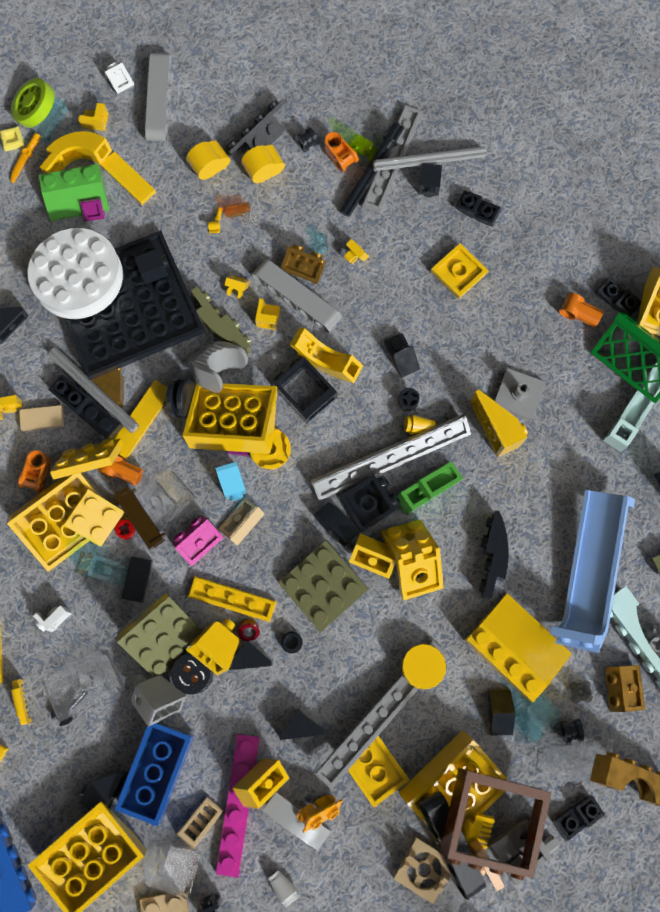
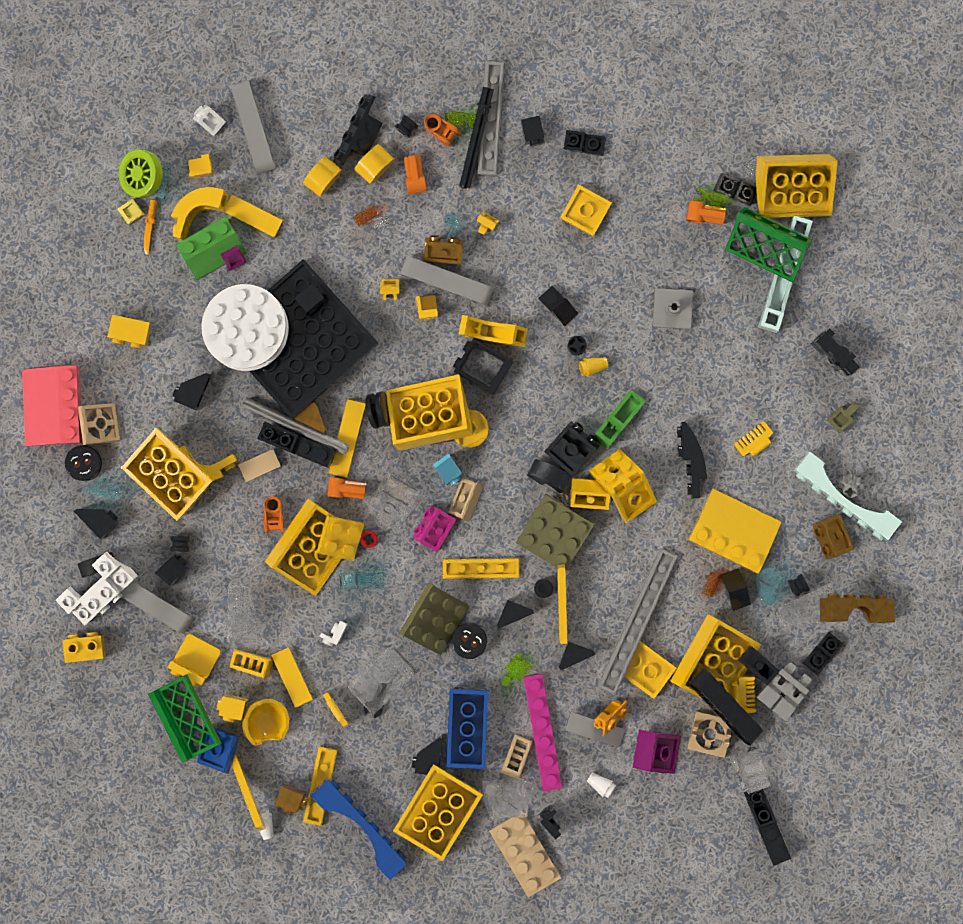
camera: 15 degrees left, 10 degrees up
(87, 458) = (317, 490): yellow plate -> none
(137, 579) = (394, 578): black tile -> none
(139, 518) = (379, 526): dark brown container -> none
(156, 698) = (447, 670): light grey torso -> none
(213, 359) = (391, 366): light grey animal -> none
(214, 226) = (349, 238): yellow hand -> none
(215, 646) = (482, 612): yellow torso -> none
(220, 326) = (393, 333): olive slope -> none
(233, 722) = (516, 668): none -> clear neon green plate
(248, 623) = (503, 584): dark red piece -> none
(260, 783) = (556, 709): yellow brick -> none
(299, 191) = (415, 179): none -> orange piece
(305, 666) = (562, 613): none -> yellow tile
(357, 871) = (656, 751): none -> magenta slope
(391, 457) = (577, 402): light grey tile -> none
(423, 666) = (660, 573): yellow tile -> none
(429, 158) = (526, 110): light grey axle -> none
(456, 816) = (720, 681): reddish brown window -> none
(476, 698) = (711, 584): none -> clear orange pin
(494, 878) = (757, 714): light nougat plate -> none
(500, 426) = (665, 348): yellow slope -> none
(503, 809) = (758, 665): none -> black slope
(563, 564) = (756, 445): none -> yellow piece
(585, 696) = (796, 556): clear smoke plate -> none
(593, 296) = (714, 198): none -> clear neon green plate
(594, 571) = (779, 446): light blue panel -> none

